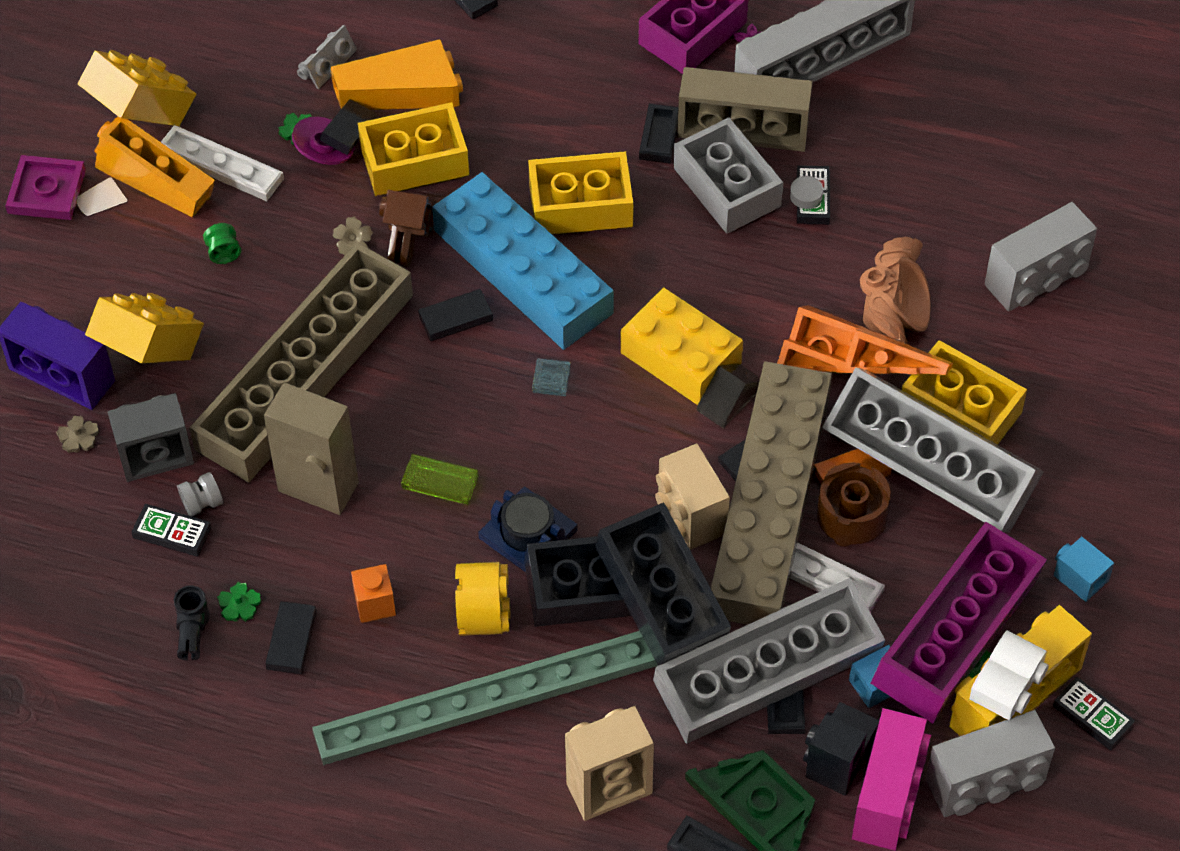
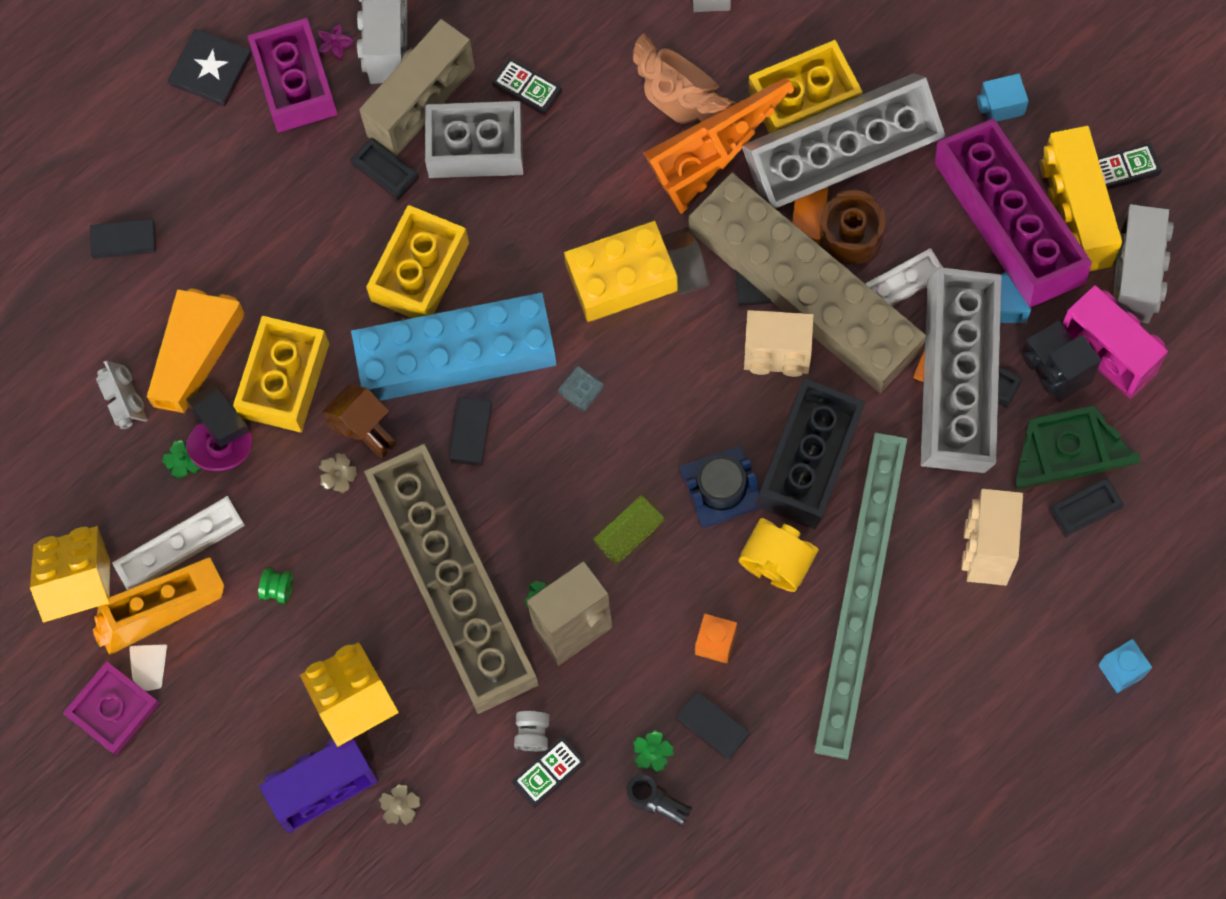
camera: 55 degrees left, 15 degrees up
(151, 437) = (456, 742): dark grey brick -> none
(661, 583) = (866, 410): black brick -> none
(806, 192) = (528, 89): light grey tile -> none
(1008, 676) = (1100, 204): white brick -> none

